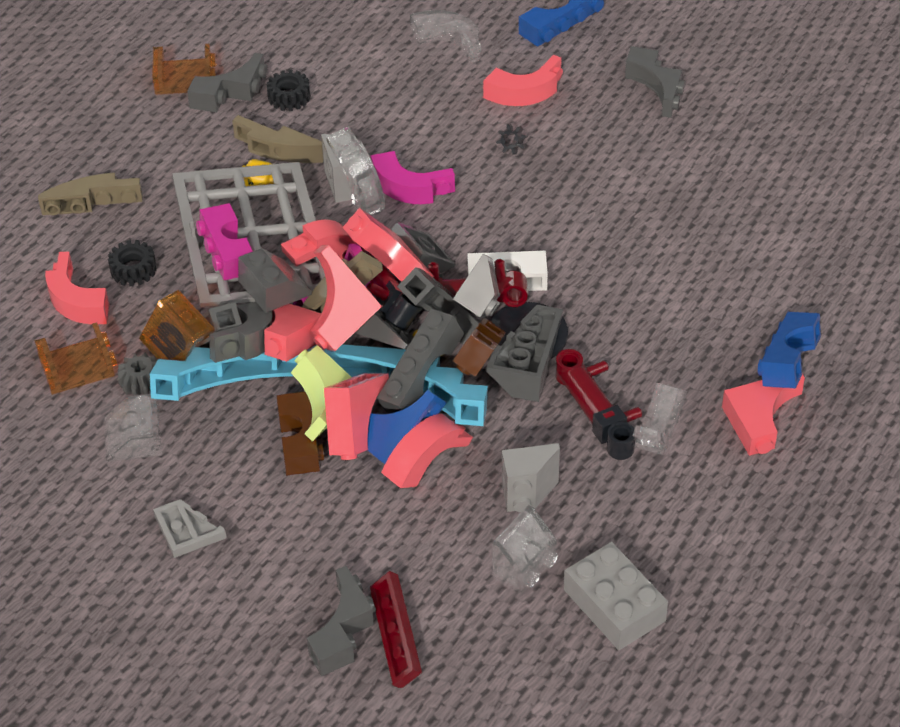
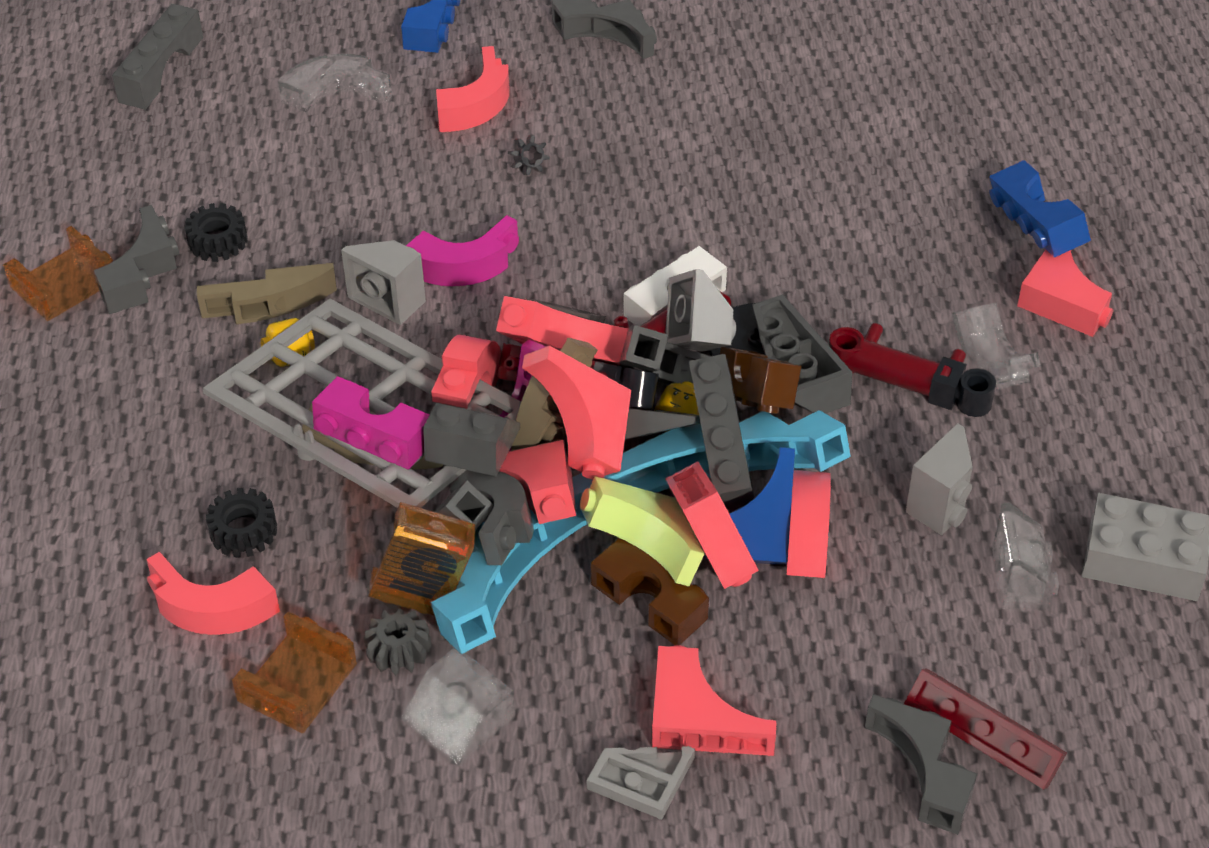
camera: 40 degrees left, 0 degrees up
(82, 193) = (91, 478): dark tan slope -> none
(245, 507) = (695, 716): none -> coral arch
(359, 170) = (428, 263): clear arch -> none

